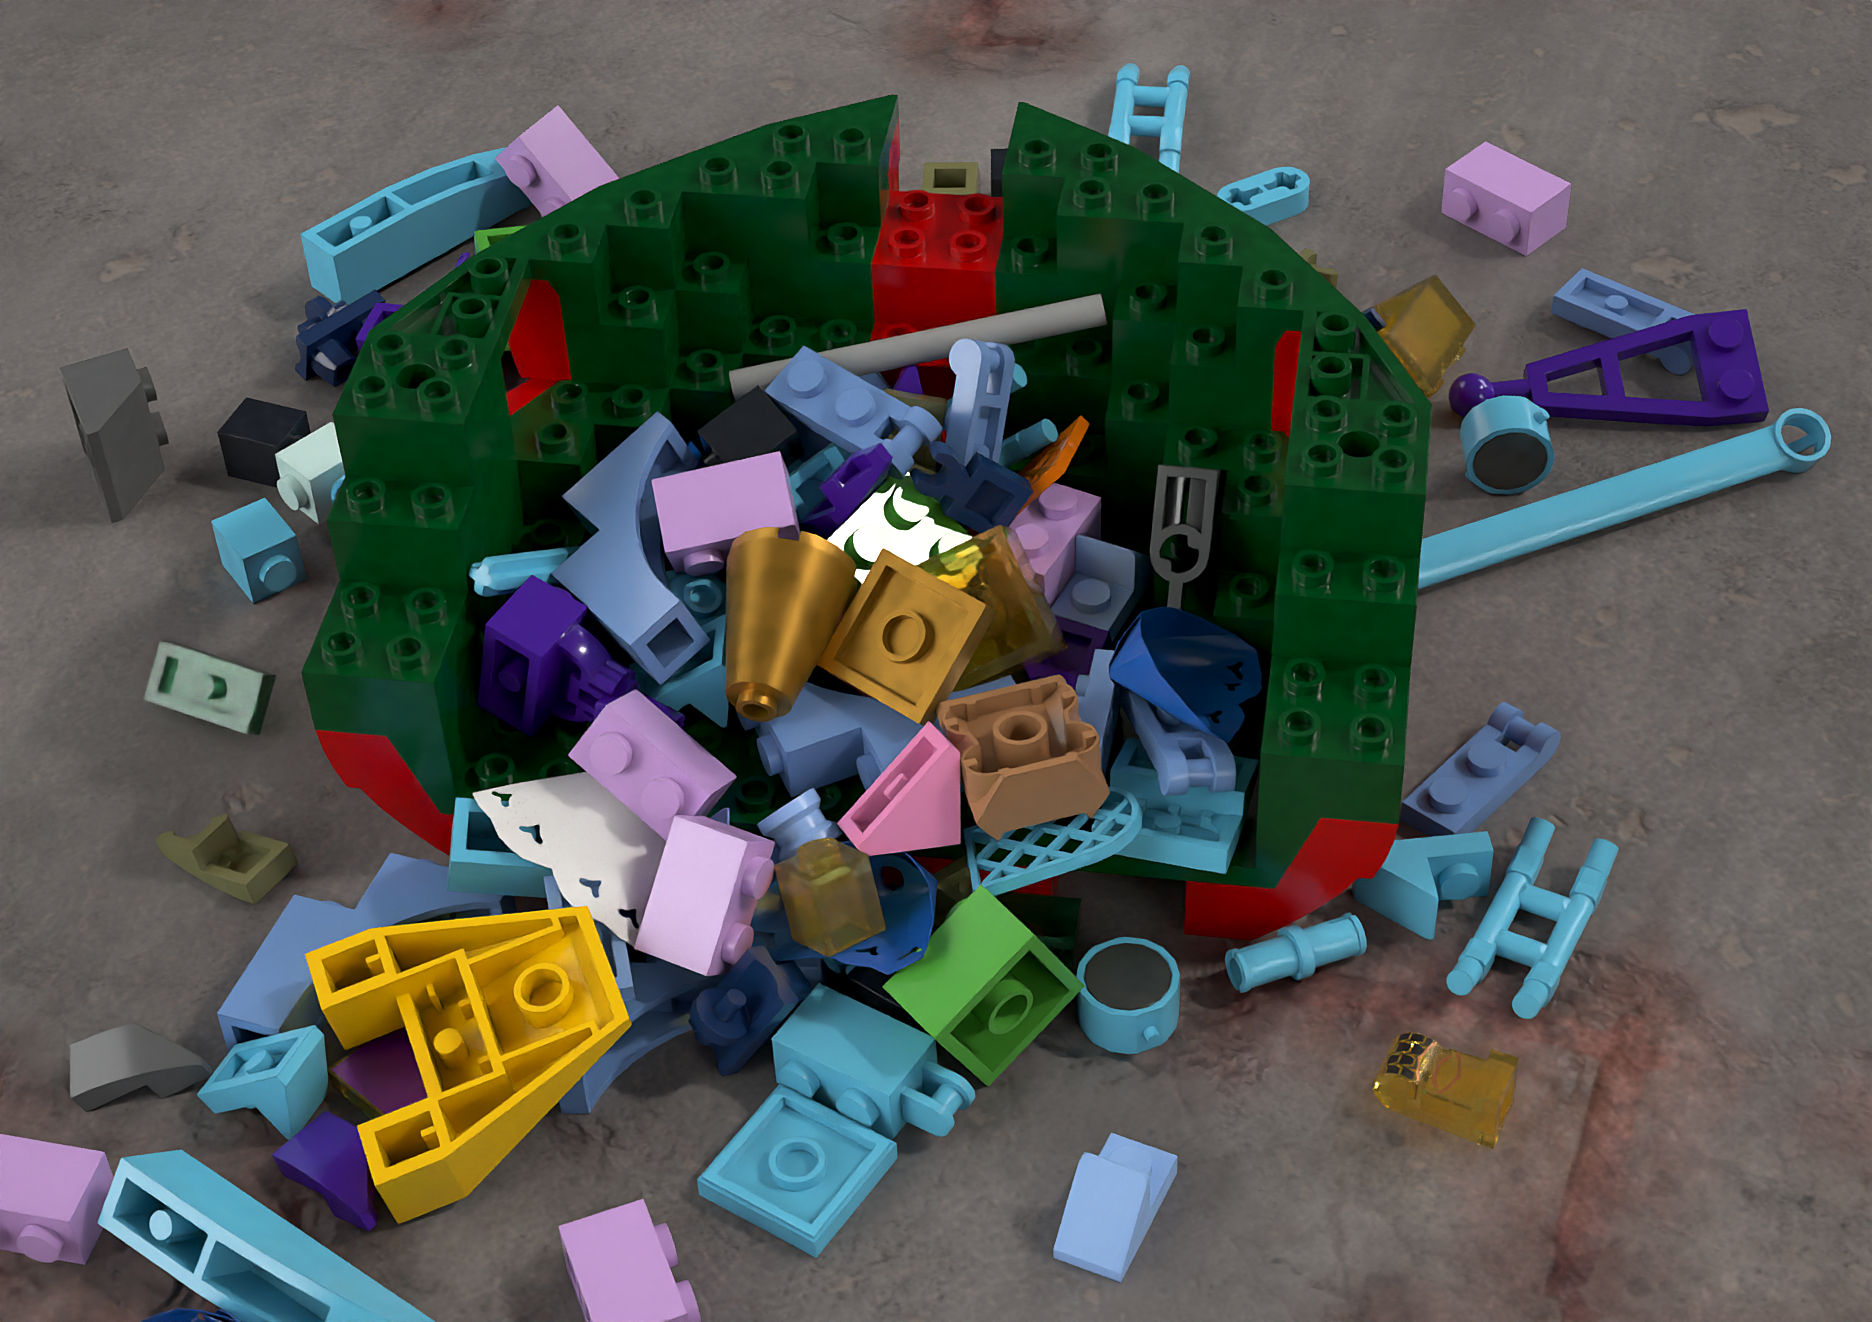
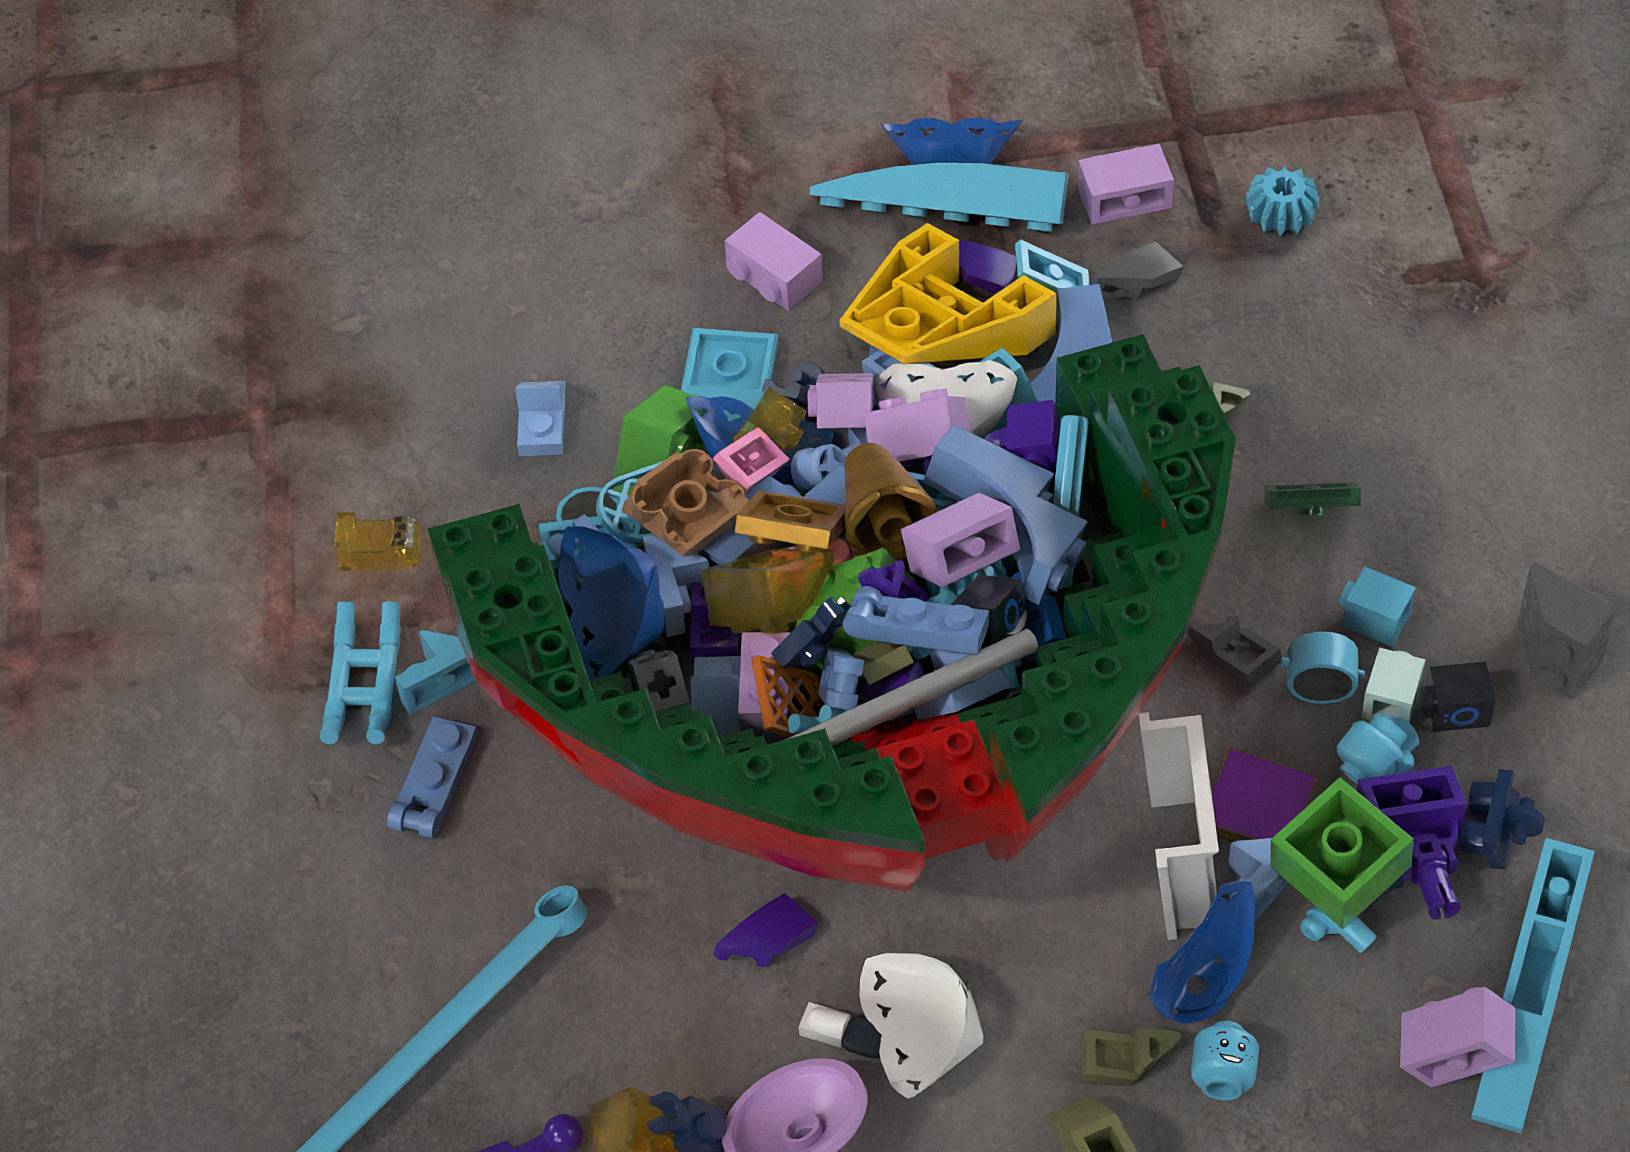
camera: 155 degrees right, 10 degrees up
(1506, 445) = (509, 1062): piece -> none

